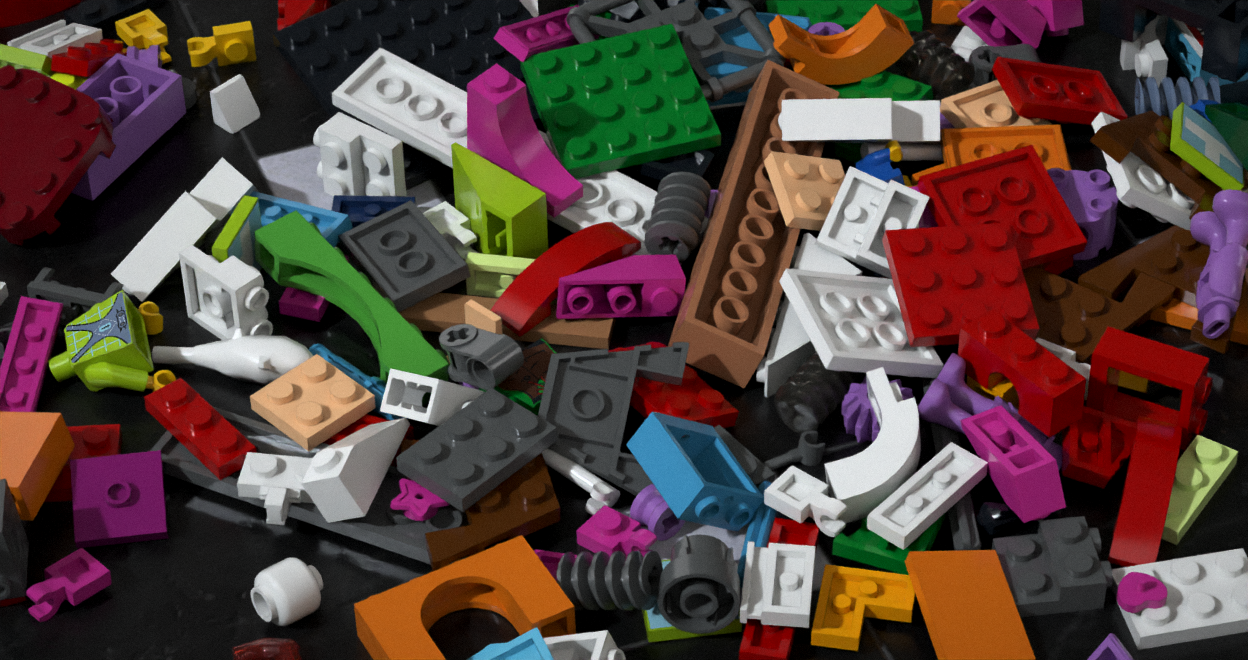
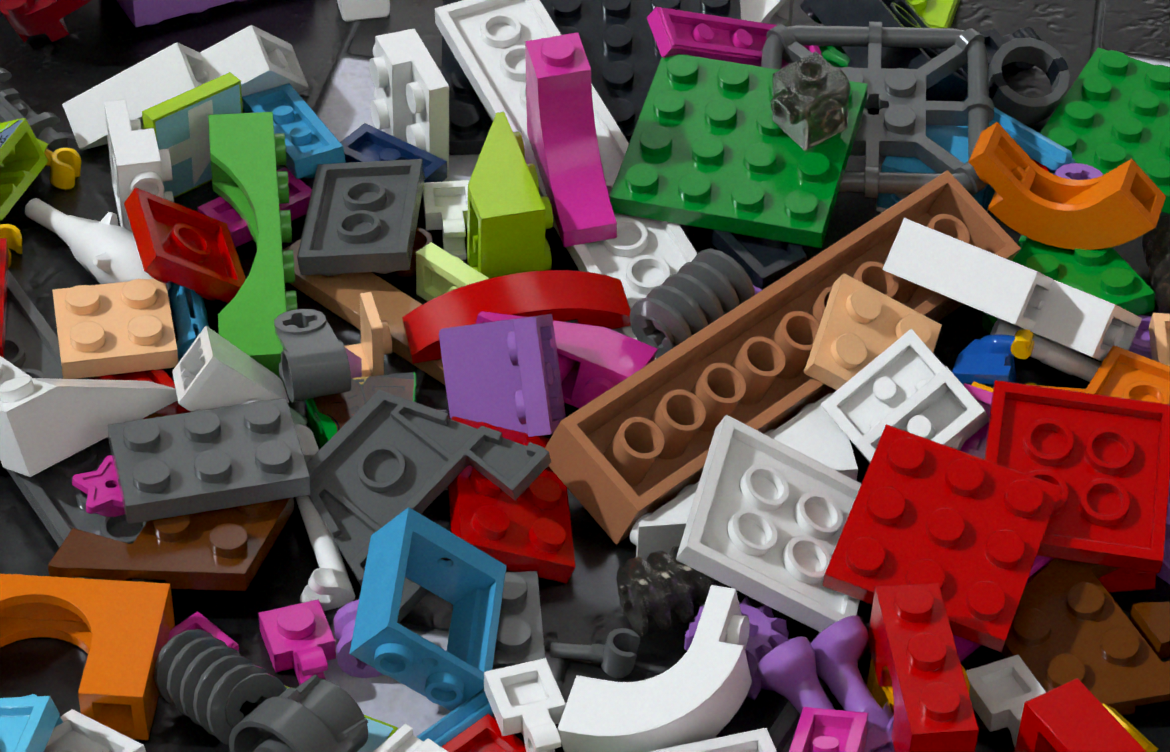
camera: 30 degrees right, 0 degrees up
(313, 328) = (184, 246): none -> red plate
(605, 310) = (504, 374): none -> medium lavender bracket
(660, 48) = (810, 100): none -> clear smoke brick

